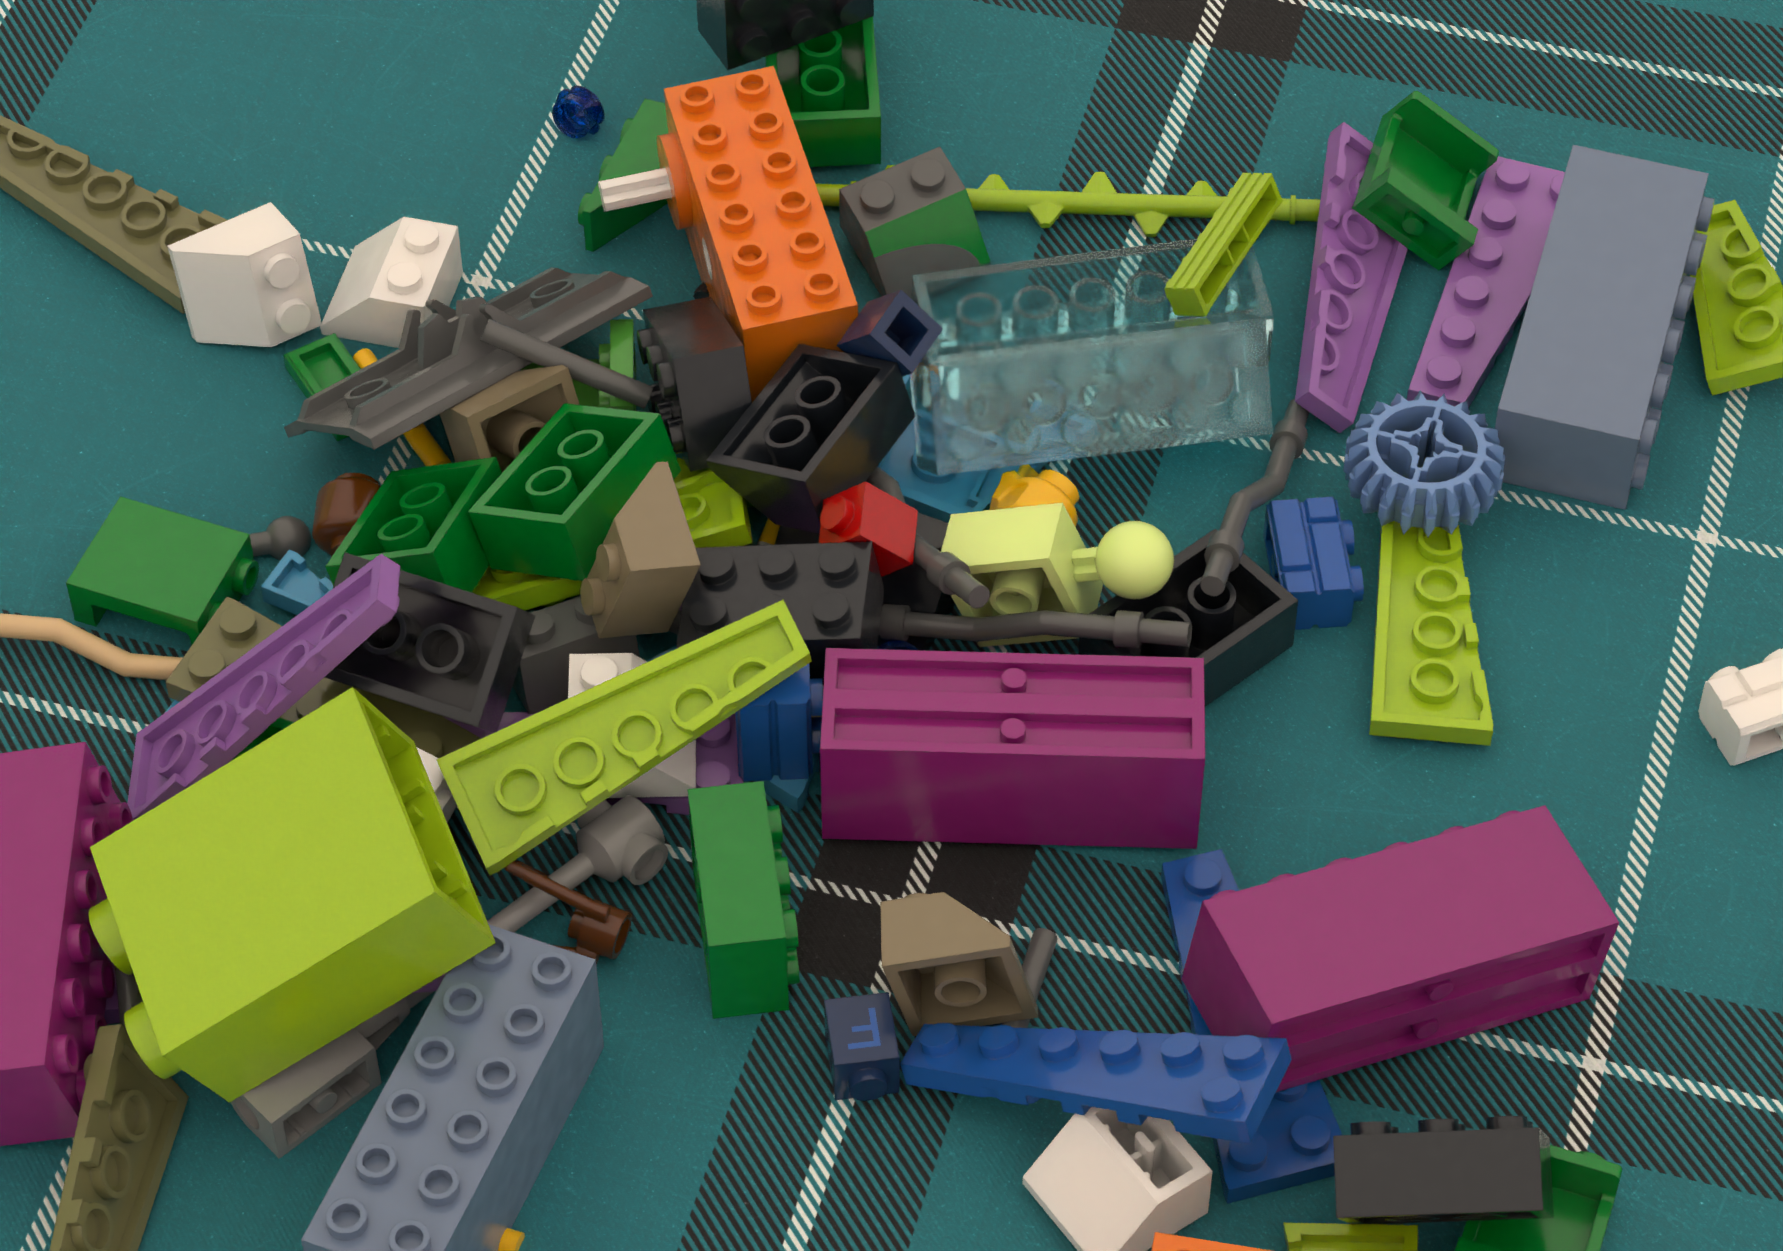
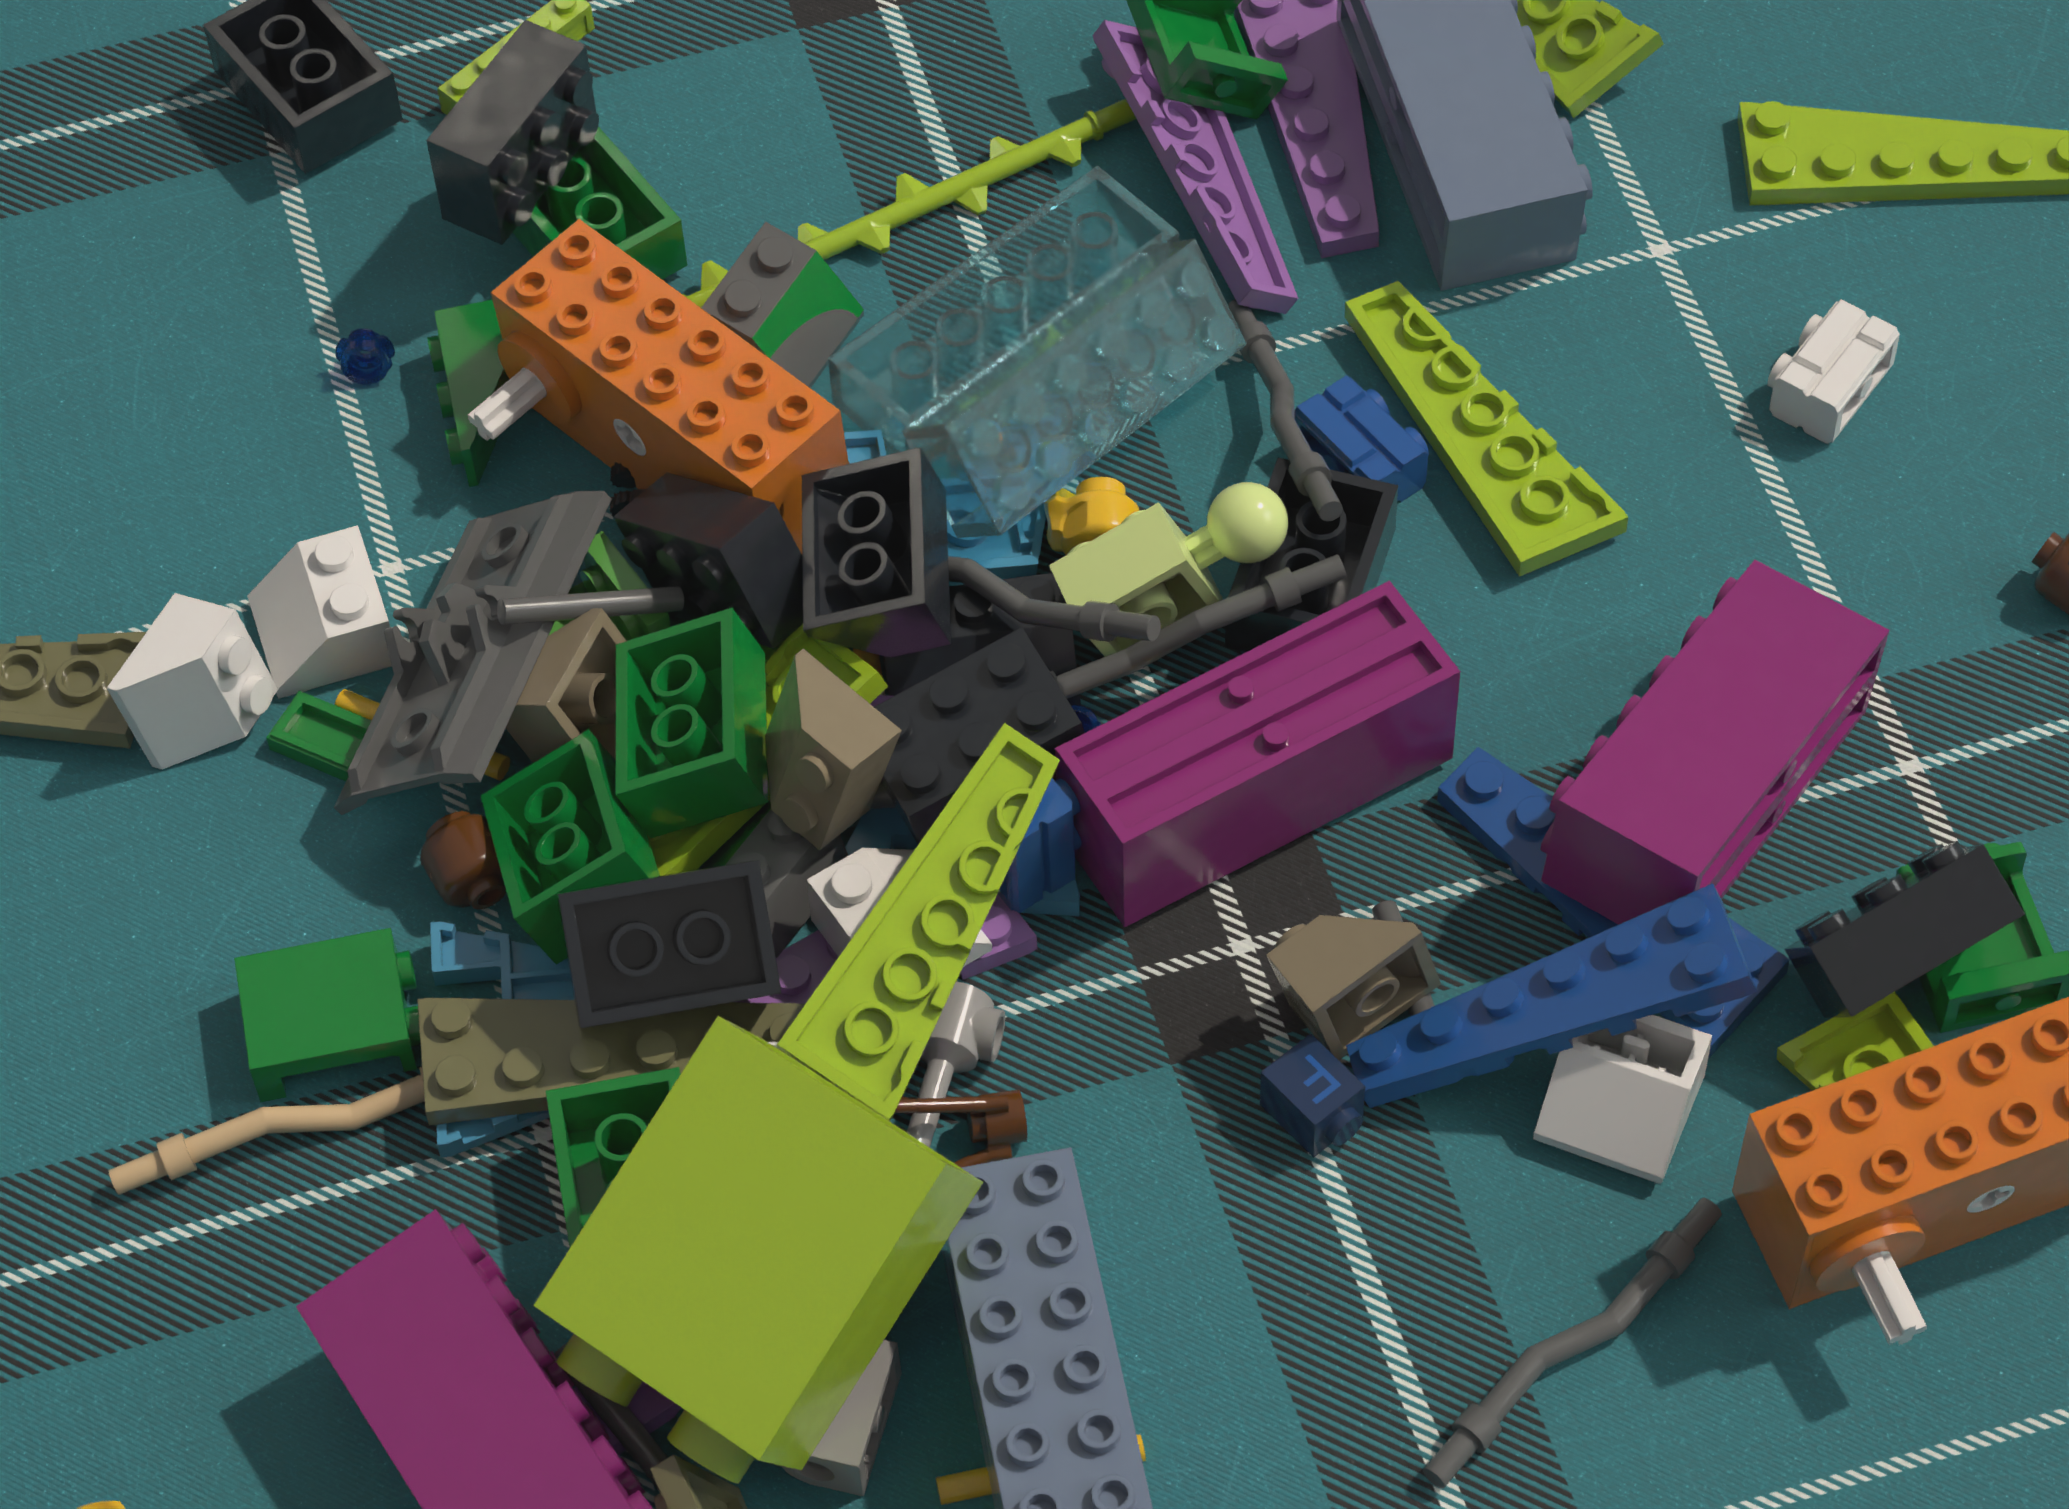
camera: 30 degrees left, 5 degrees up
(259, 687) = (534, 1099): medium lavender wing -> none
(280, 536) = (407, 914): dark grey bar -> none
(743, 899) = (1116, 1021): green brick -> none
(875, 516) = (994, 608): red brick -> none
(892, 331) = (889, 420): dark blue brick -> none
(1223, 244) = (1093, 189): lime piece -> none
(1424, 463) = (1403, 304): medium blue gear -> none

